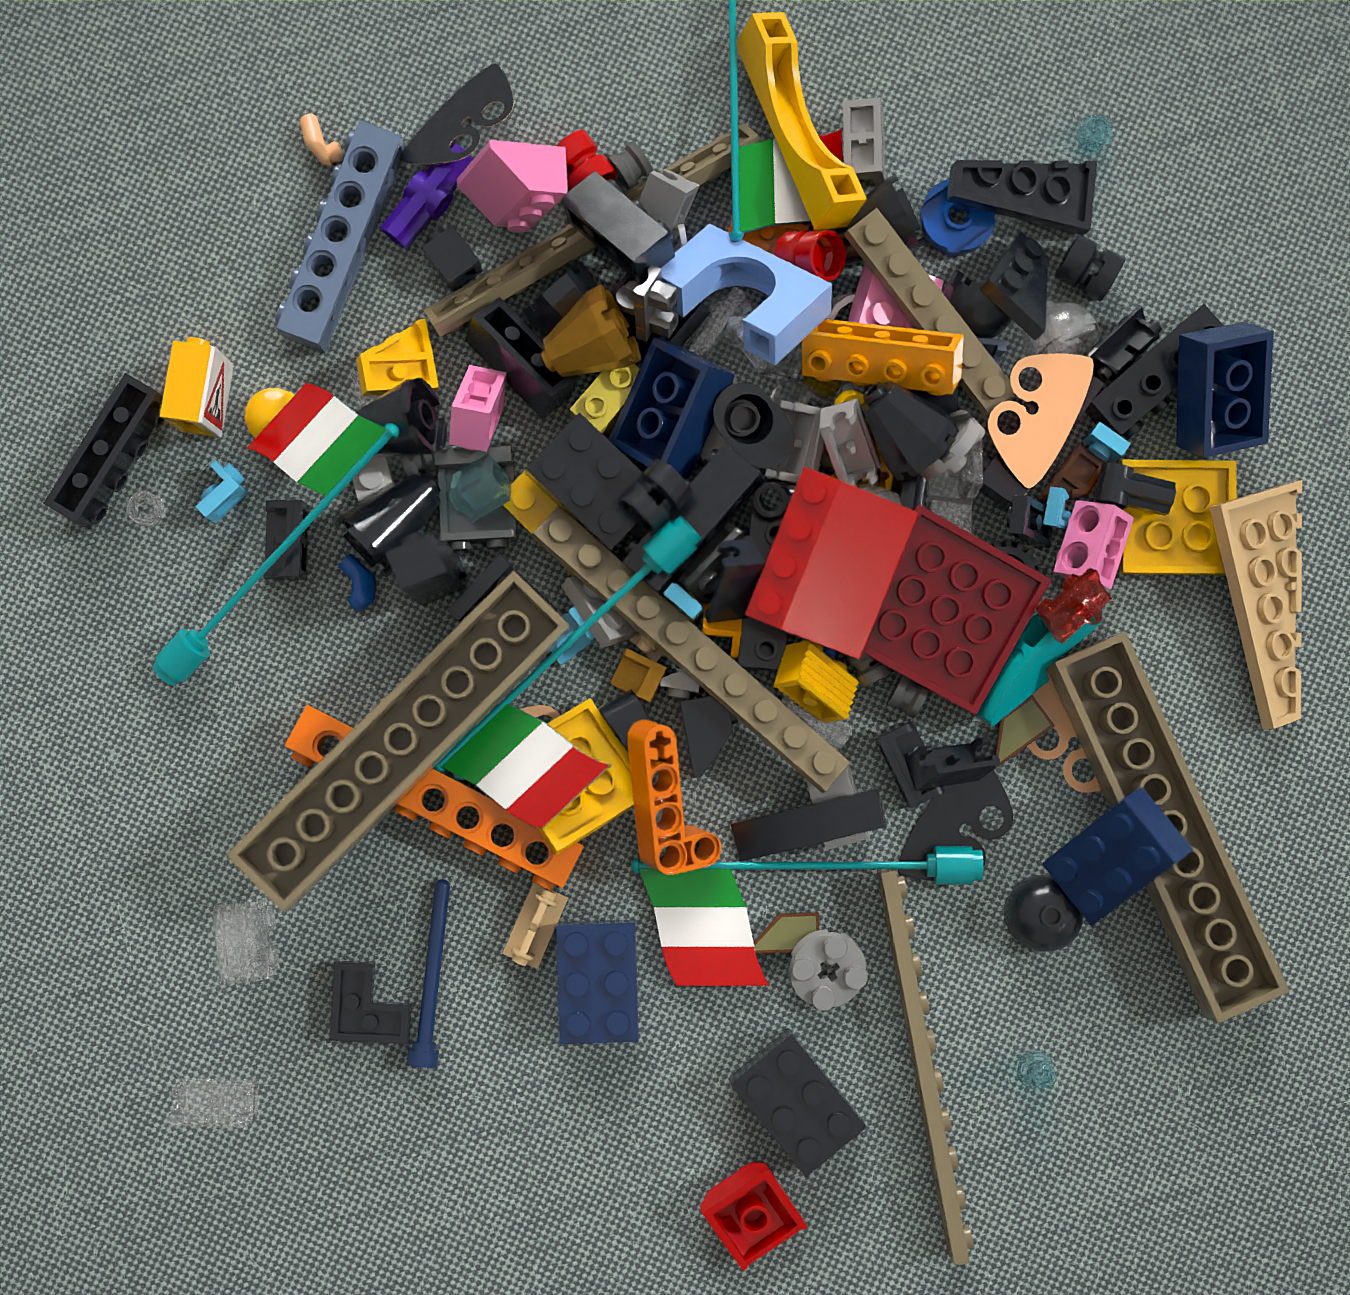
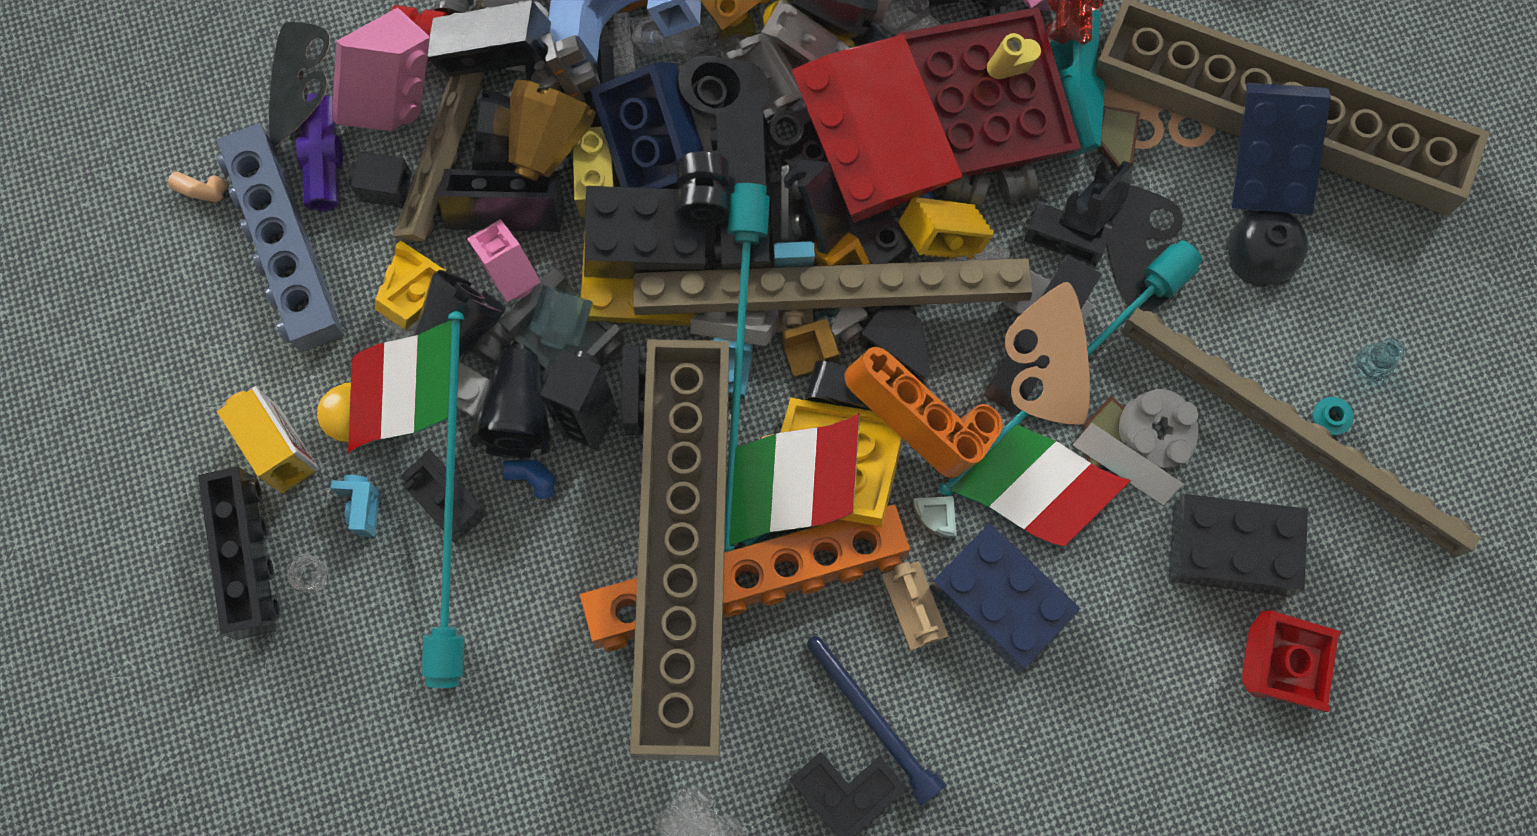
camera: 40 degrees left, 10 degrees down
(613, 877) = (936, 515): none -> light aqua tile
(778, 972) = (1127, 464): none -> white sticker
(815, 842) = (1062, 338): none -> light nougat piece
(957, 1066) = (1321, 415): none -> teal plate
(987, 604) = (1013, 56): none -> light yellow piece

